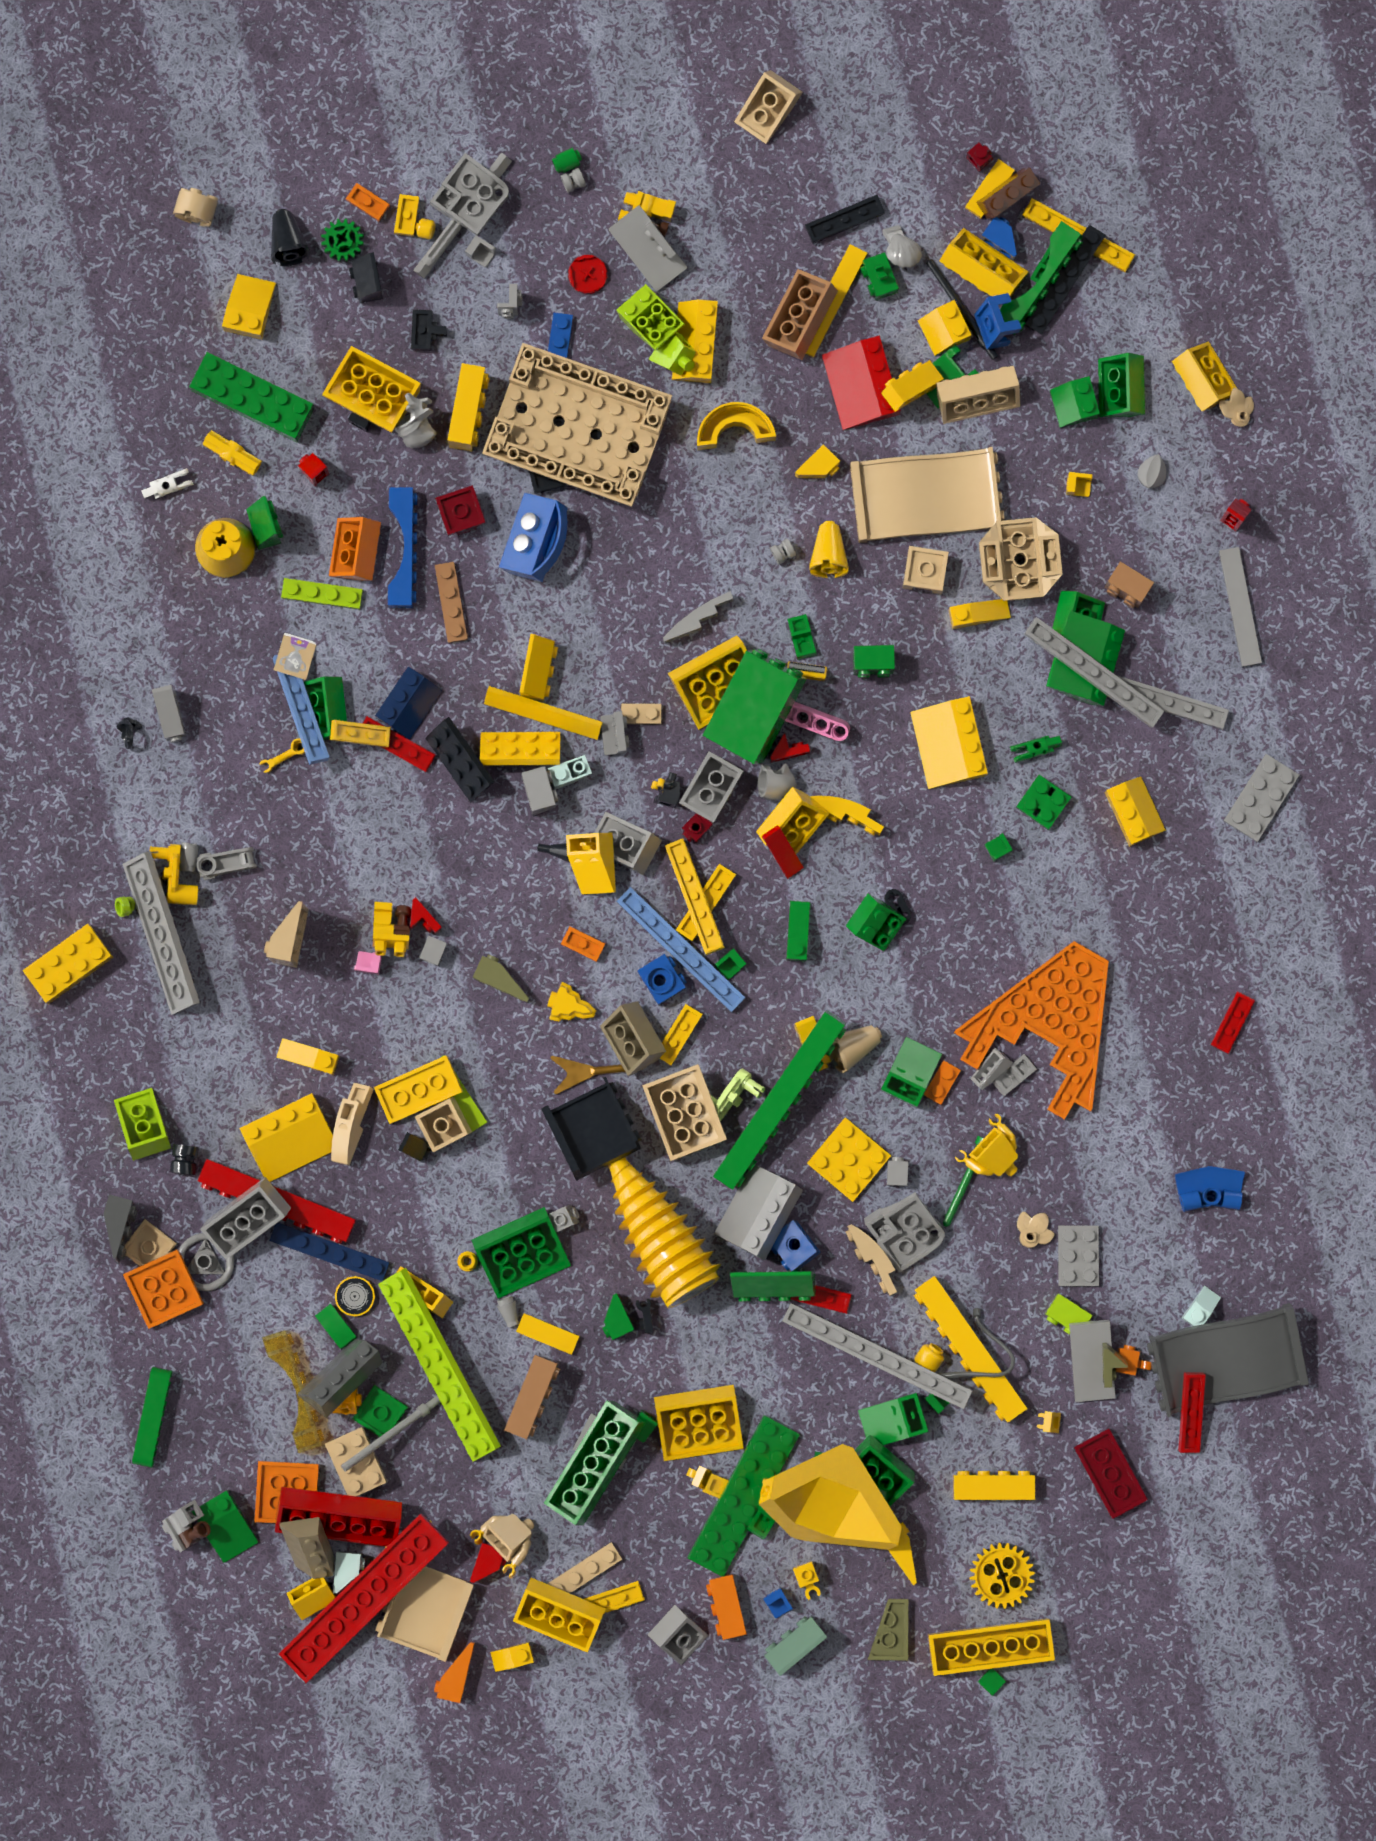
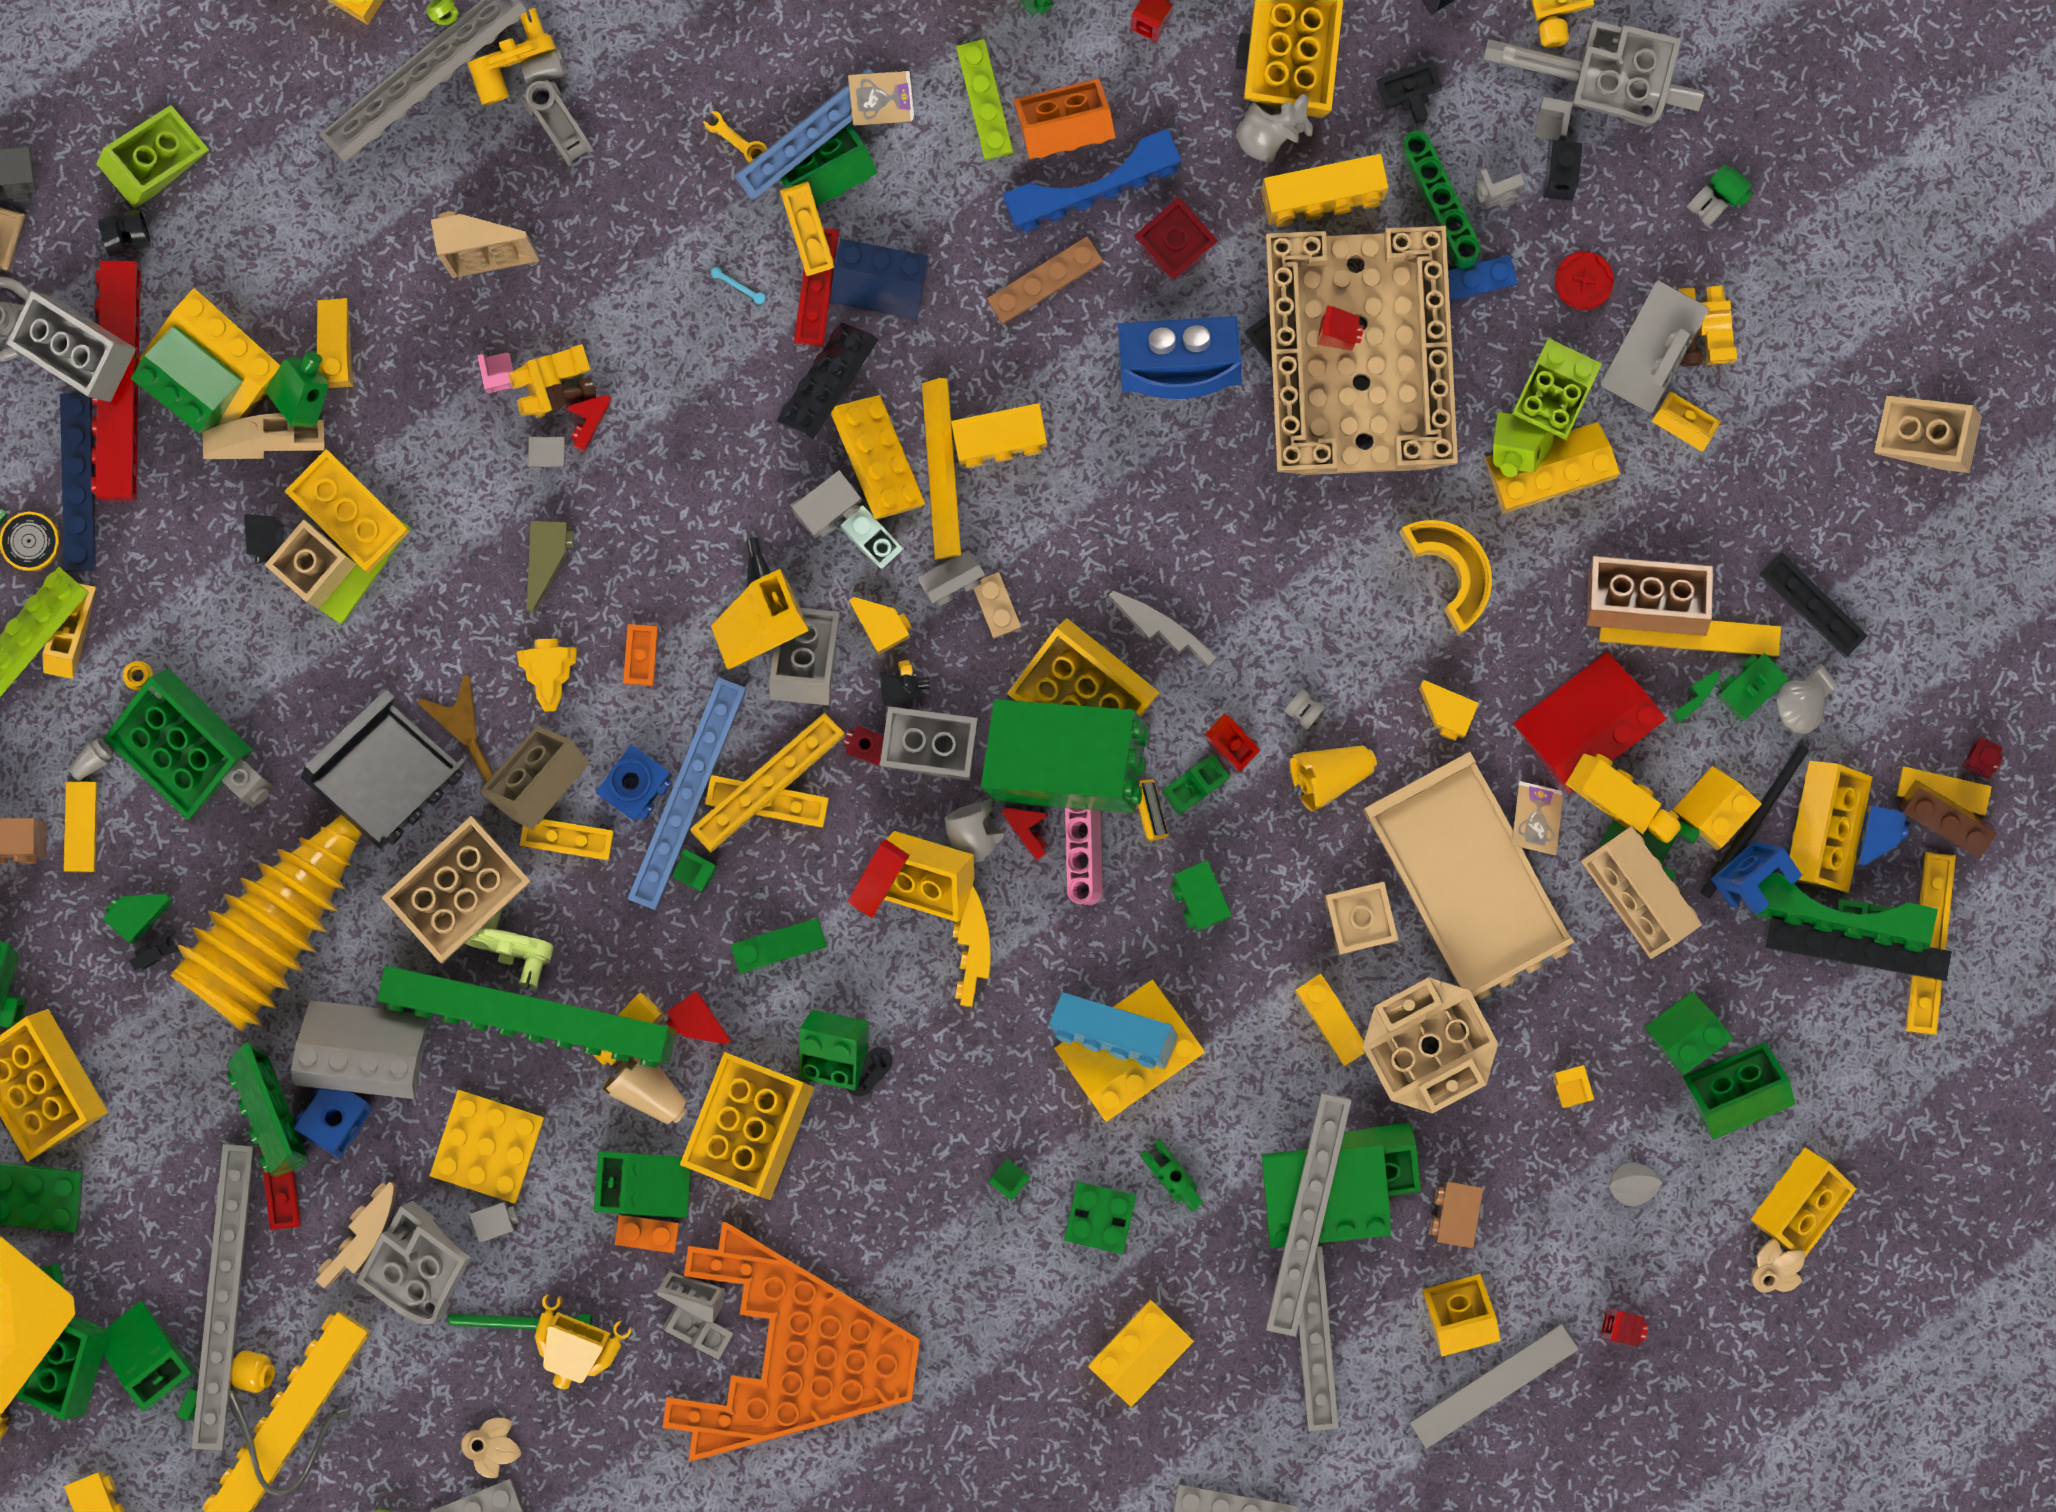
camera: 70 degrees right, 0 degrees up
(295, 1155) = (187, 380): none -> slope
(331, 1087) = (299, 389): none -> green torso
(389, 782) = (759, 298): none -> medium azure hinge
(494, 334) = (1441, 186): none -> green beam
(514, 258) = (1562, 169): none -> black torso
(560, 433) = (1339, 329): none -> red slope
(624, 788) = (881, 624): none -> yellow slope
(700, 248) = (1686, 421): none -> yellow slope
(785, 604) = (1232, 742): none -> red slope
(824, 998) = (696, 1021): none -> red slope
(870, 309) = (1699, 692): none -> green slope
(900, 993) = (747, 1126): none -> yellow slope
(907, 438) = (1537, 818): none -> sticker
(934, 746) = (1113, 1030): none -> dark azure brick
(943, 363) = (1664, 825): none -> yellow piece
(1190, 608) = (1461, 1315): none -> yellow slope

